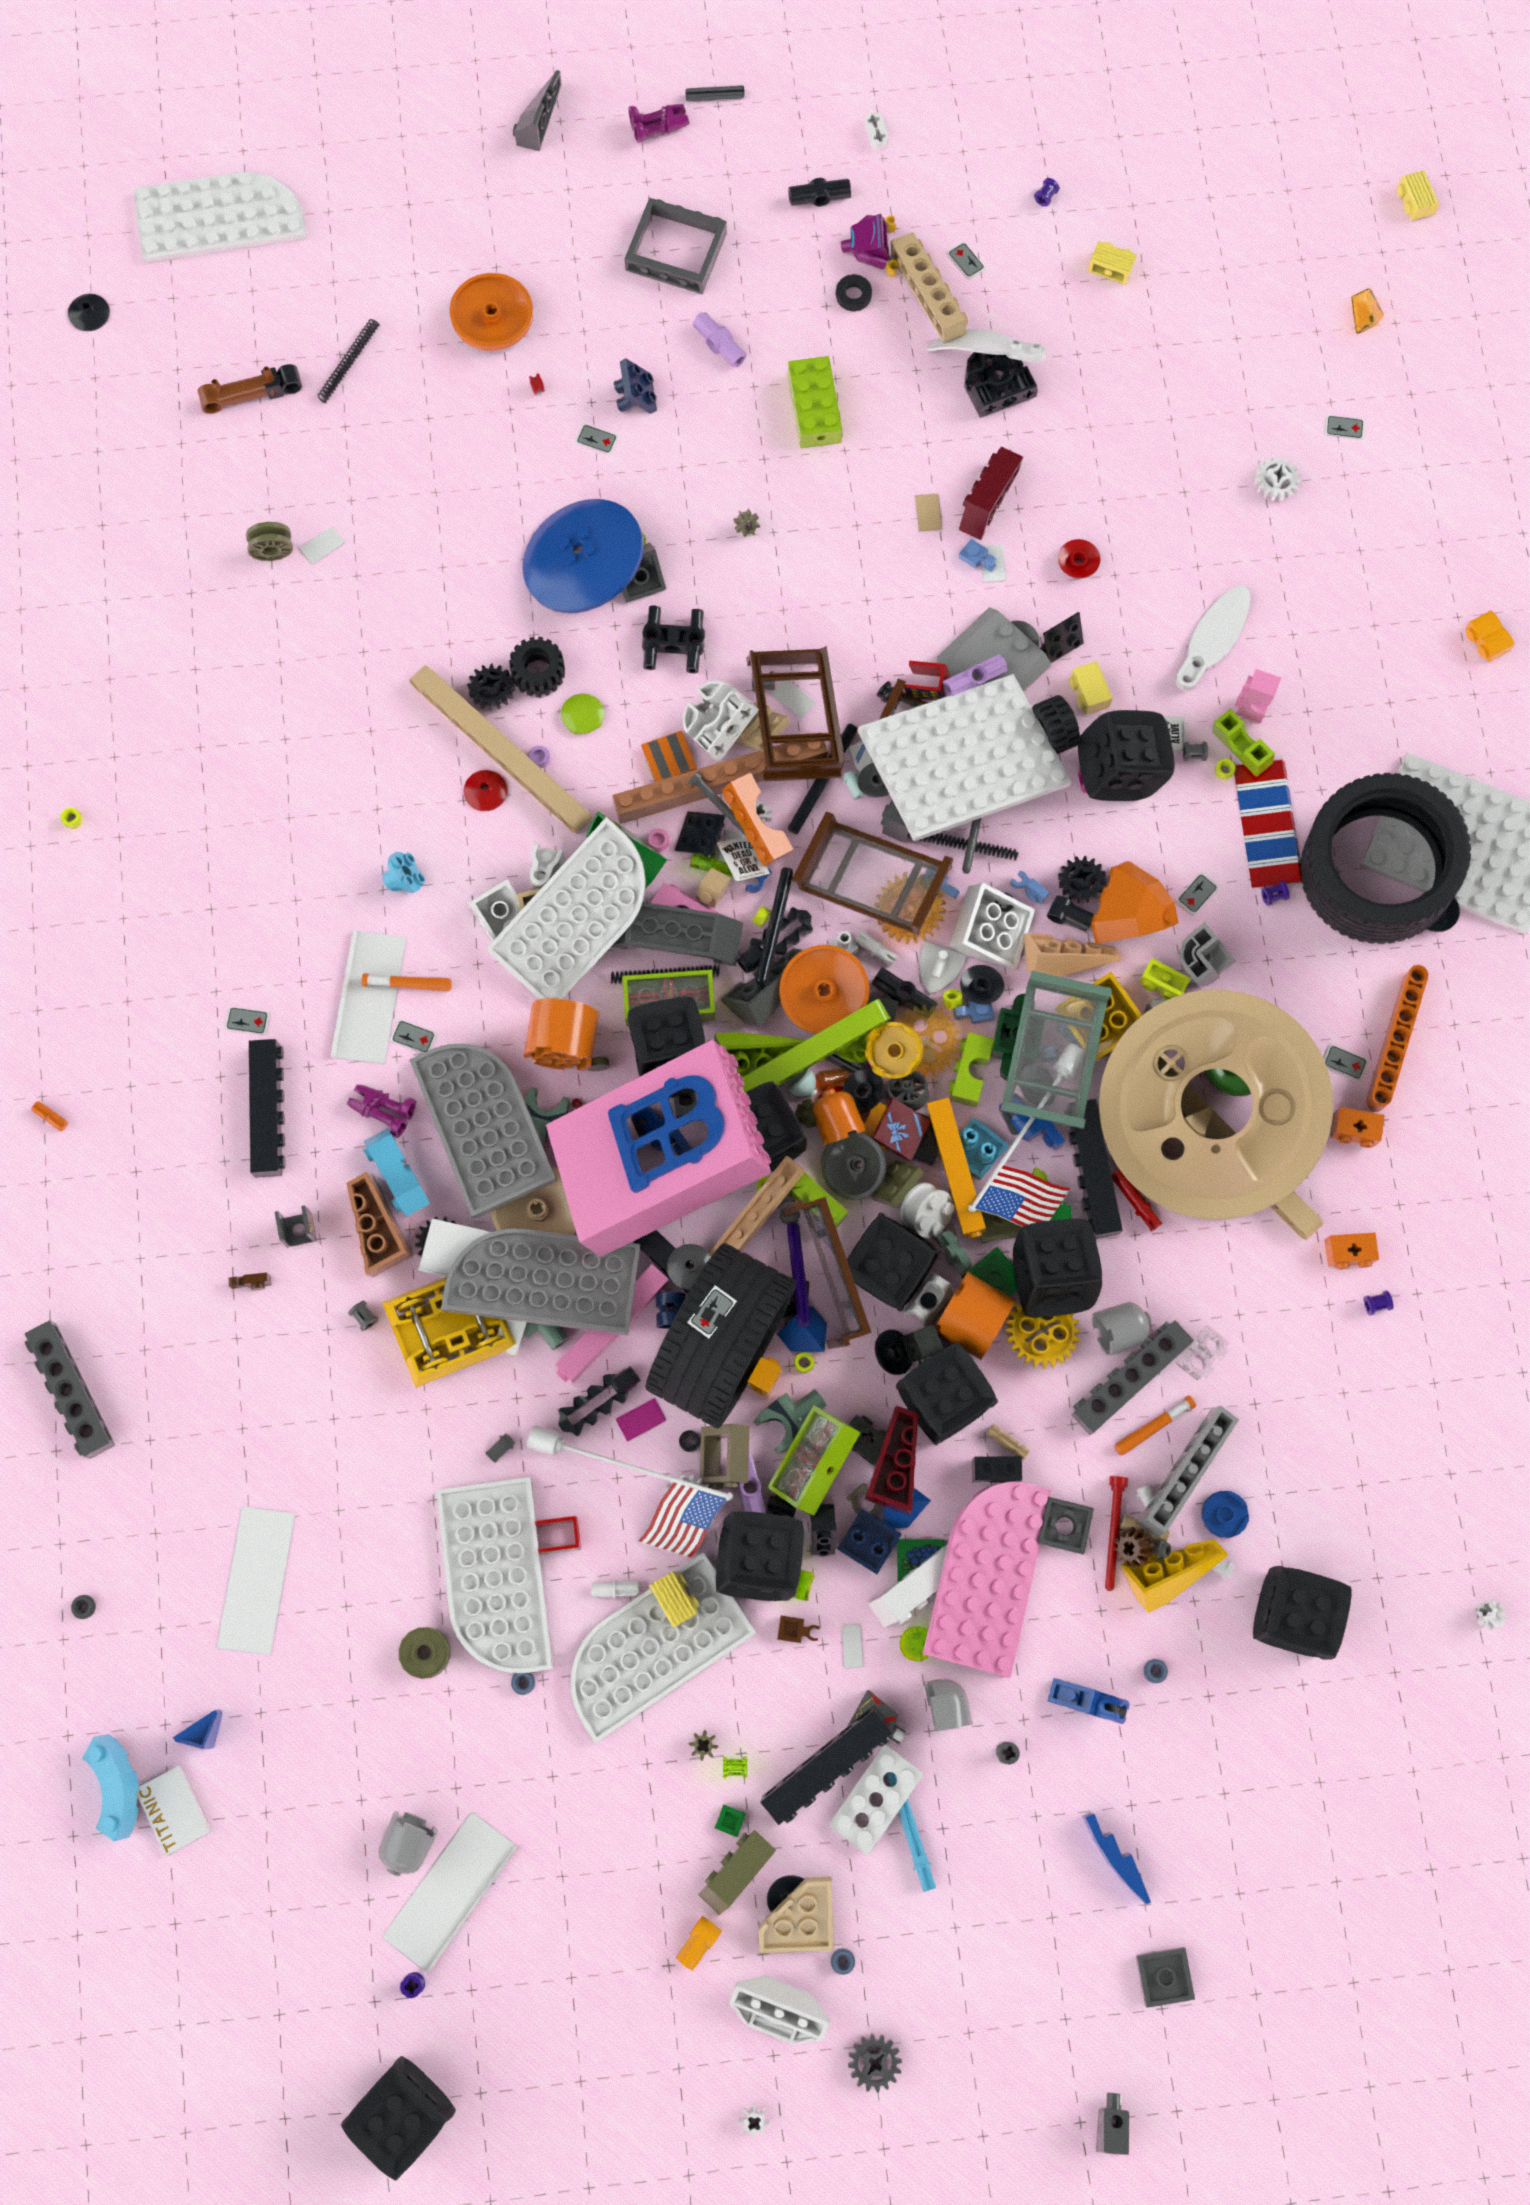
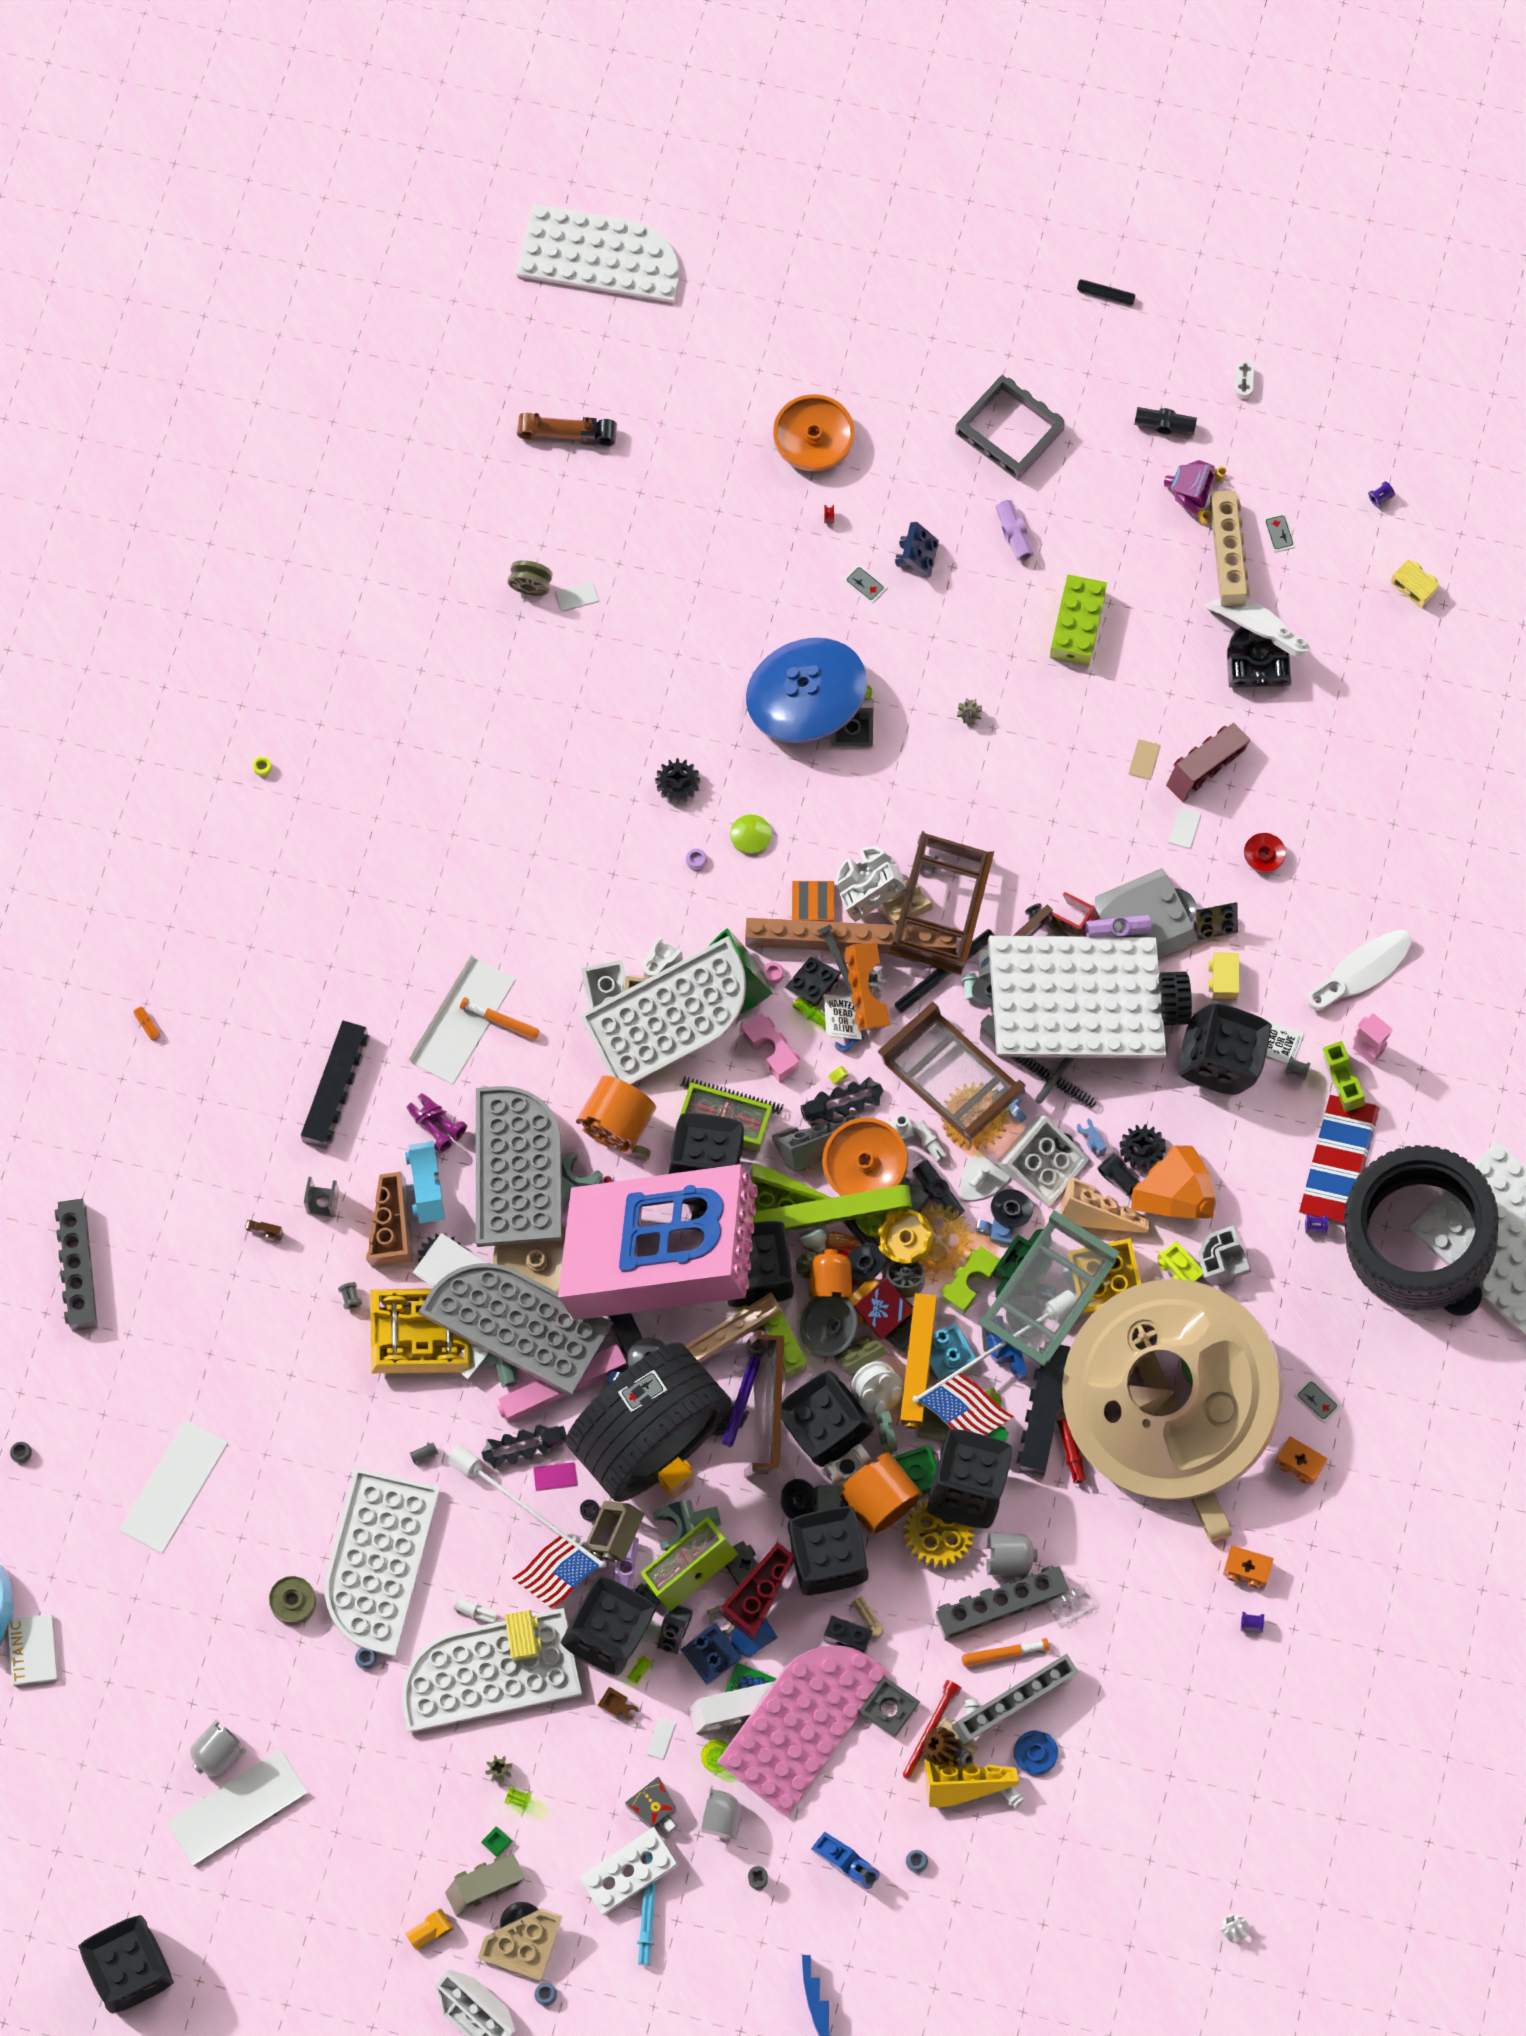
camera: 25 degrees right, 5 degrees down
(91, 318) = (451, 313): black dish -> none
(203, 1732) = (81, 1593): blue slope -> none
(247, 1020) = (347, 1001): sticker -> none
(351, 358) = (674, 430): black piece -> none
(403, 873) = (533, 921): medium azure plate -> none
(408, 1991) = (181, 1874): dark purple bush -> none
(413, 1036) = (487, 1069): sticker -> none
(485, 799) = (640, 880): red dish -> none
(500, 749) = (664, 840): tan beam -> none
(533, 651) = (726, 792): black tyre -> none
(536, 117) = (926, 263): dark grey wedge -> none
(572, 1519) = (445, 1558): red piece -> none
(648, 1121) = (661, 1215): blue plate -> none
(671, 118) = (1054, 301): magenta piece -> none
(673, 639) = (859, 795): black piece -> none
(684, 933) = (761, 1064): dark grey slope -> none
(713, 887) = (804, 1033): tan brick -> none
(774, 926) = (844, 1087): black axle -> none
(793, 698) = (948, 888): white sticker -> none
(800, 1369) = (712, 1475): neon yellow axle -> none
(805, 1338) = (728, 1459): blue slope -> none
(826, 1765) = (597, 1823): black brick -> none
(848, 303) = (1159, 516): black tyre -> none
(952, 998) = (980, 1211): neon yellow axle -> none
(977, 554) = (1171, 815): medium blue plate -> none
(1197, 893) = (1246, 1198): sticker -> none
(1229, 764) = (1324, 1090): neon yellow axle -> none
(1267, 478) = (1490, 850): white gear -> none
(1302, 1612) = (1062, 1855): black piece -> none
(1390, 1045) = (1379, 1387): orange beam -> none

